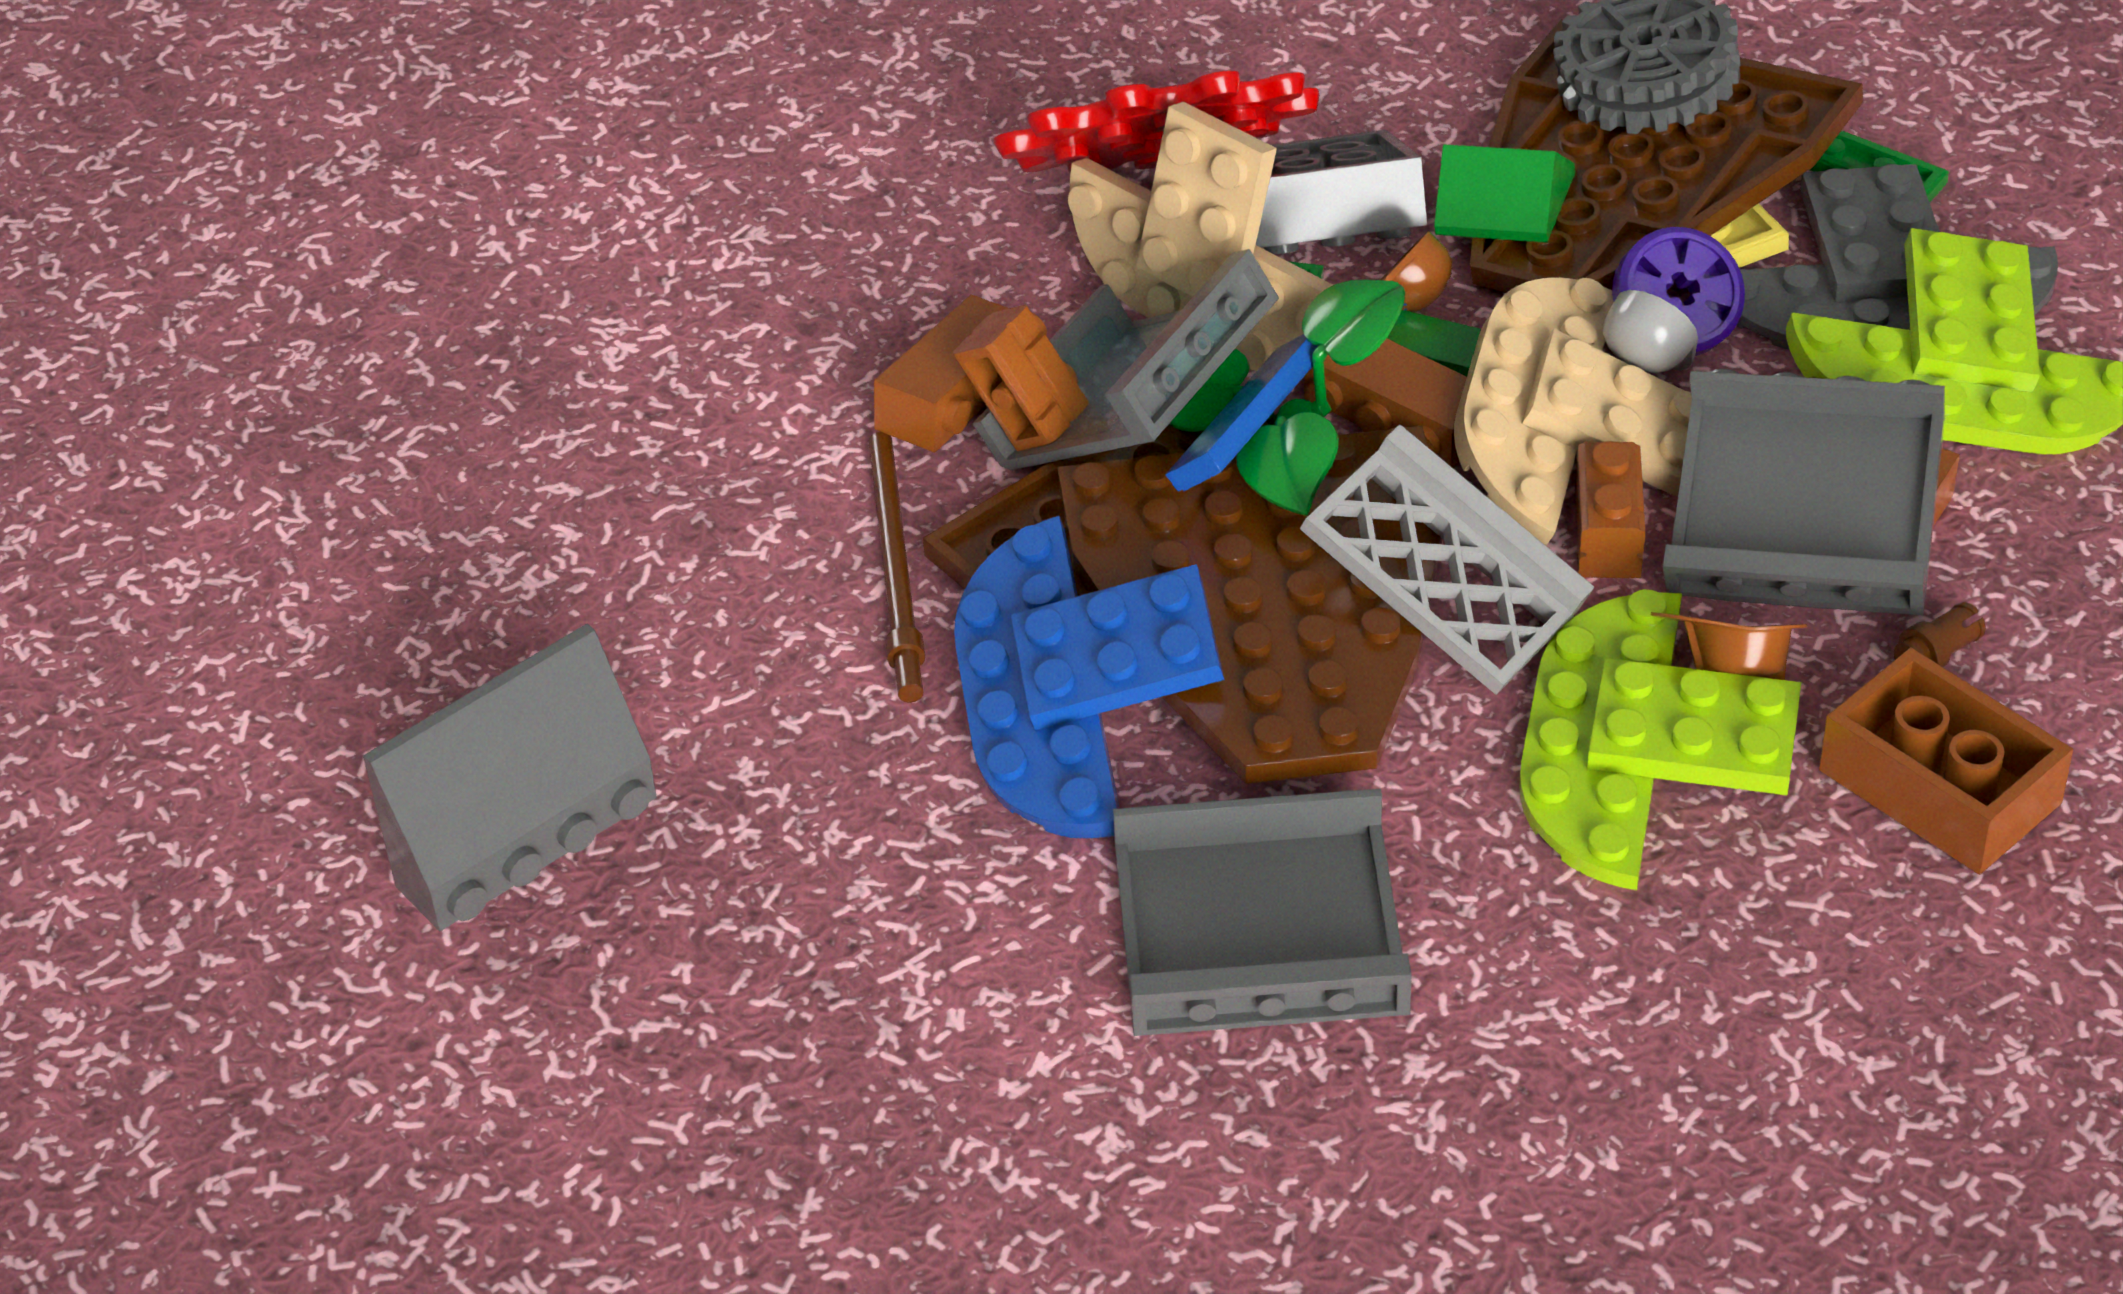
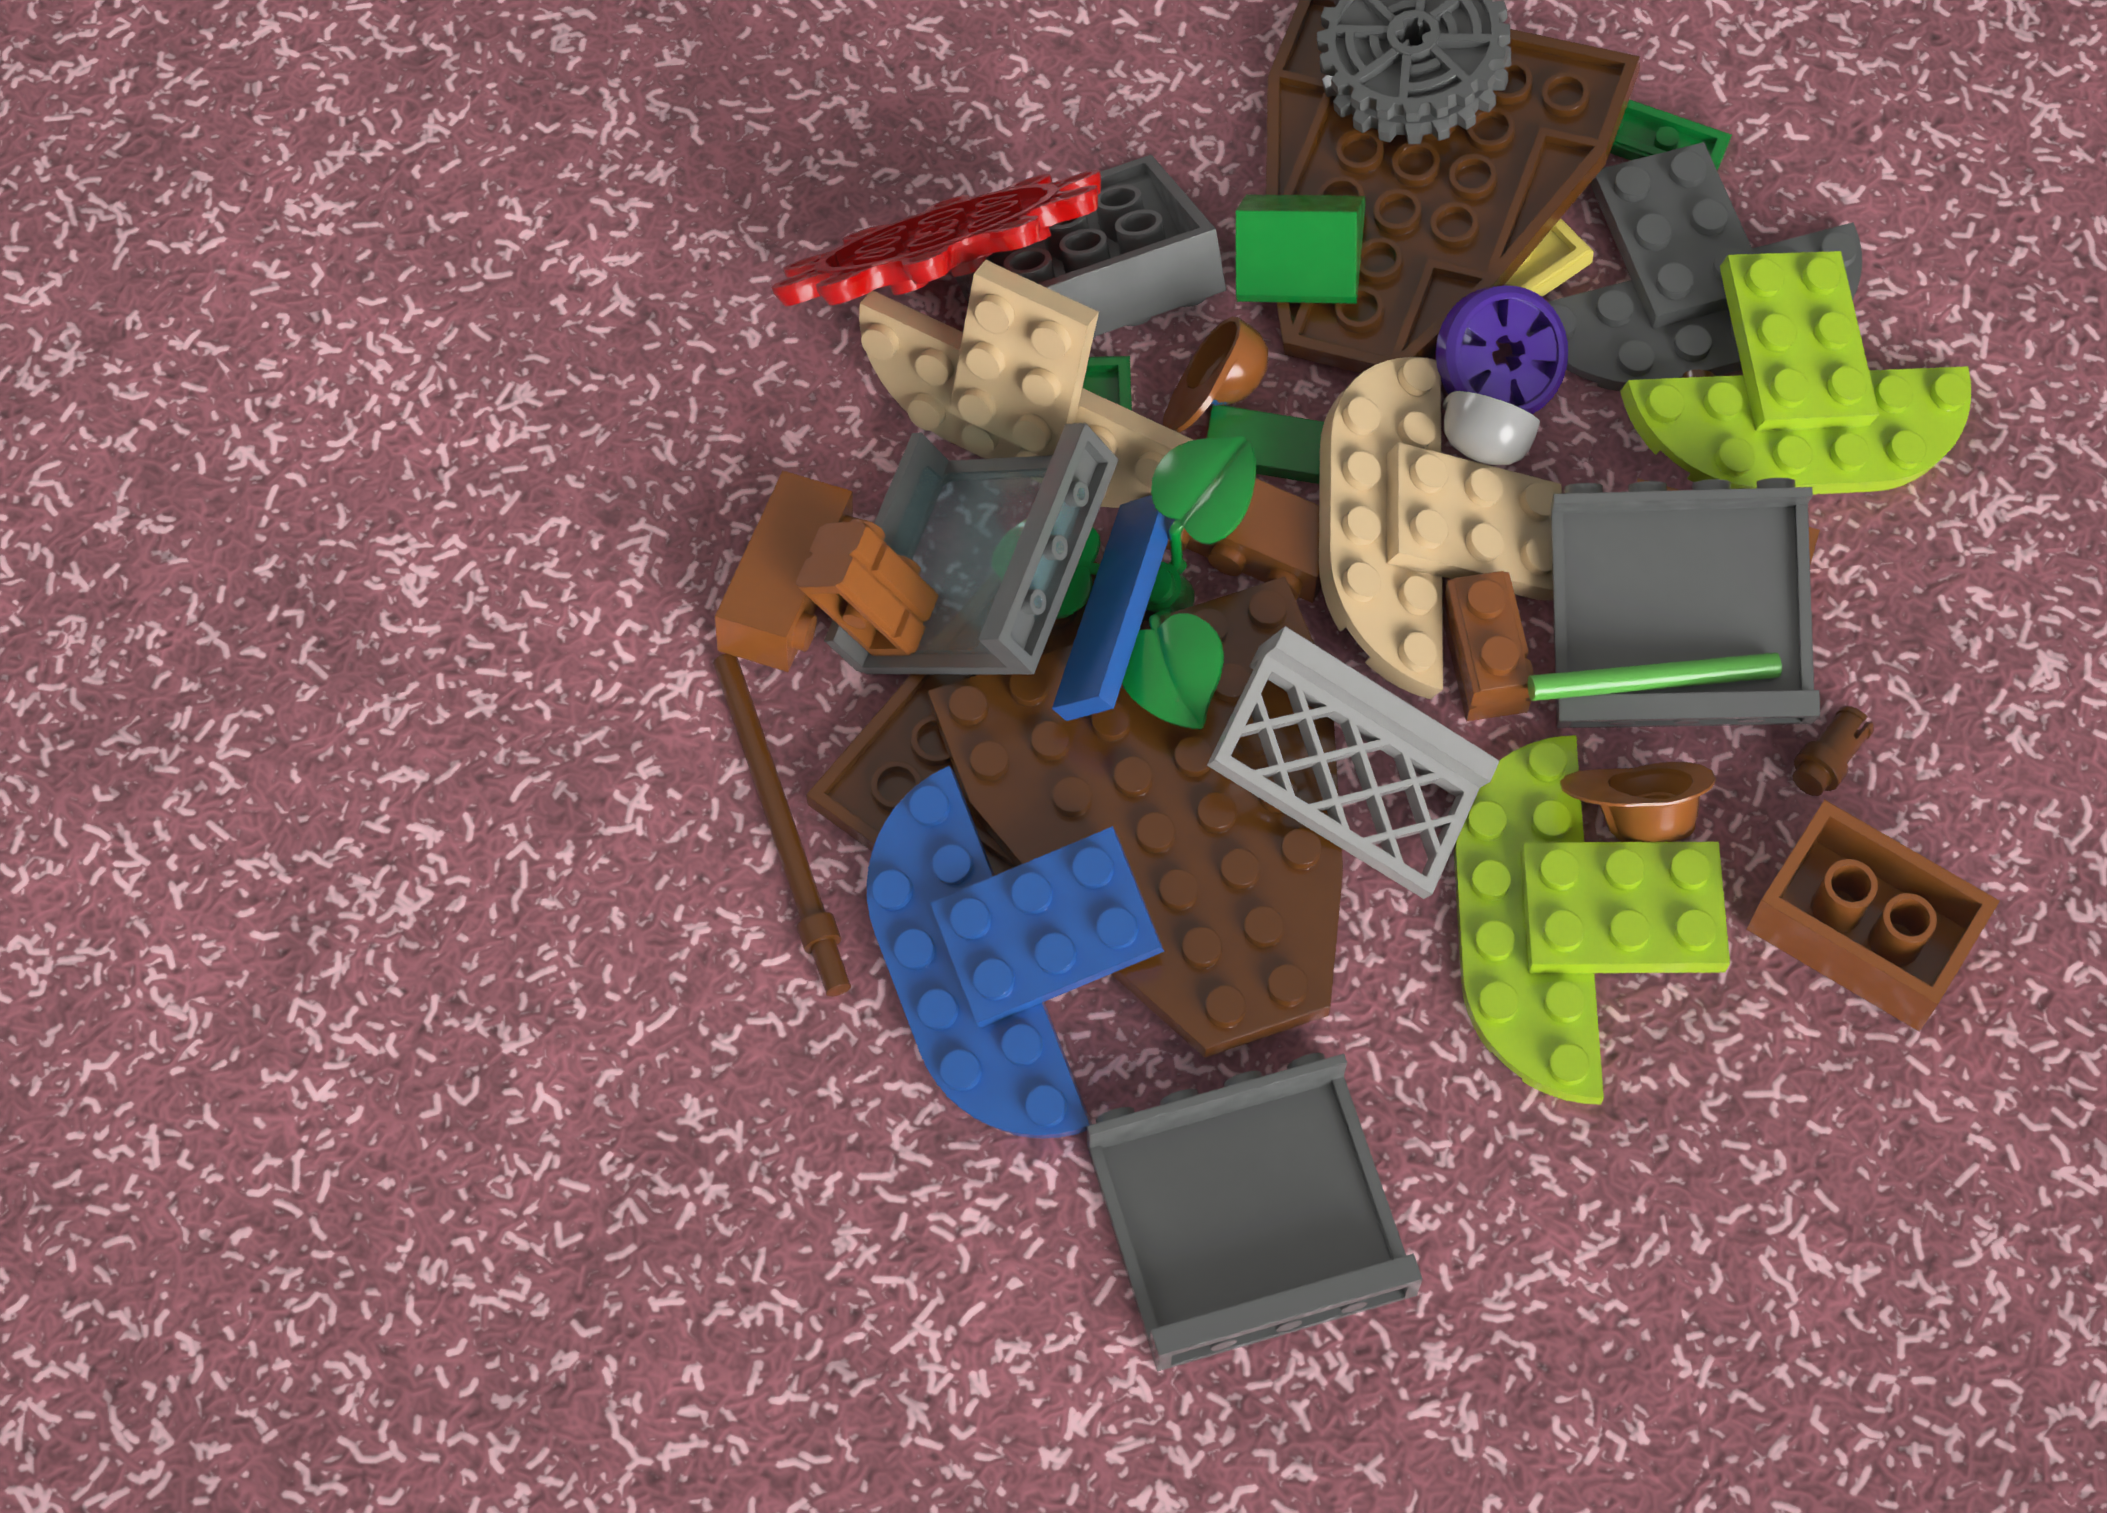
camera: 15 degrees left, 20 degrees up
(509, 779) = (475, 1215): slope -> none
(1761, 538) = (1654, 676): none -> bright green bar

